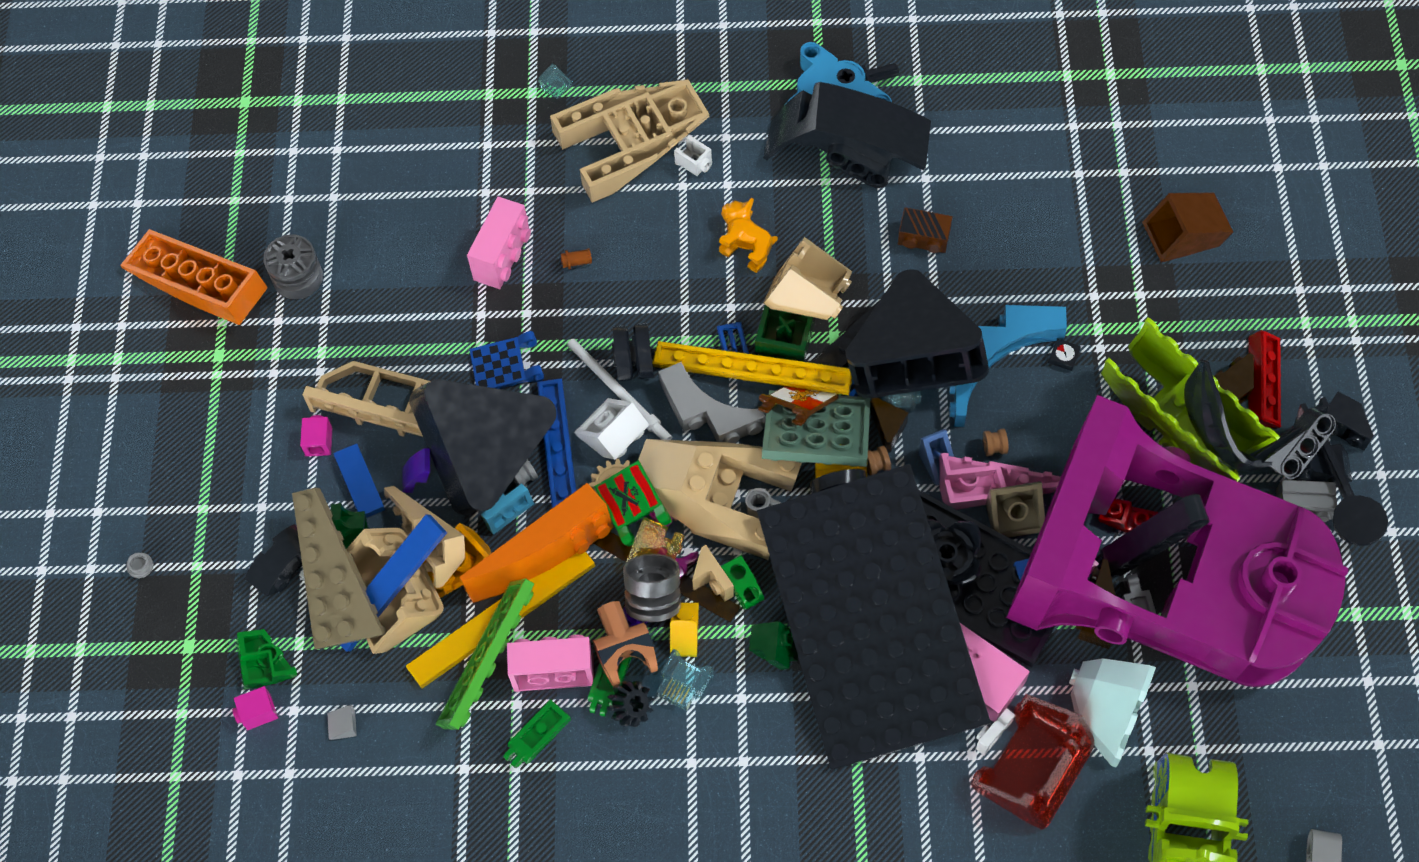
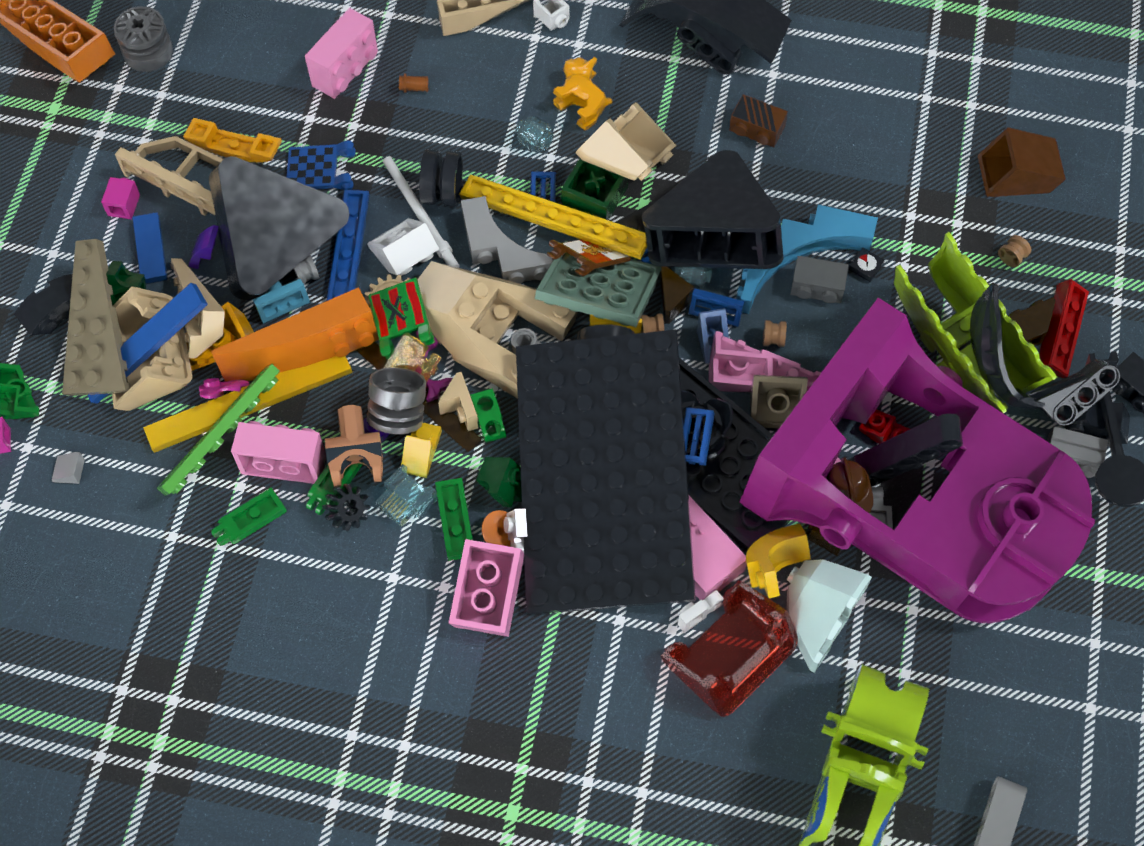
camera: 10 degrees right, 0 degrees up
(412, 358) = (227, 144): none -> light orange slope
(466, 612) = (214, 388): none -> dark pink plate
(710, 287) = (534, 134): none -> clear light blue head
(737, 692) = (453, 516): none -> green plate
(784, 694) = (493, 529): none -> orange piece
(789, 754) = (486, 588): none -> bright pink brick
(800, 690) = (516, 527): none -> white plate
(933, 424) = (715, 302): none -> blue tile
(962, 557) = (692, 458): none -> blue tile
(1024, 379) = (819, 279): none -> dark grey brick
(1051, 659) = (773, 553): none -> yellow arch
(1111, 577) = (852, 482): none -> reddish brown piece
(1202, 312) = (1014, 251): none -> medium nougat wheel

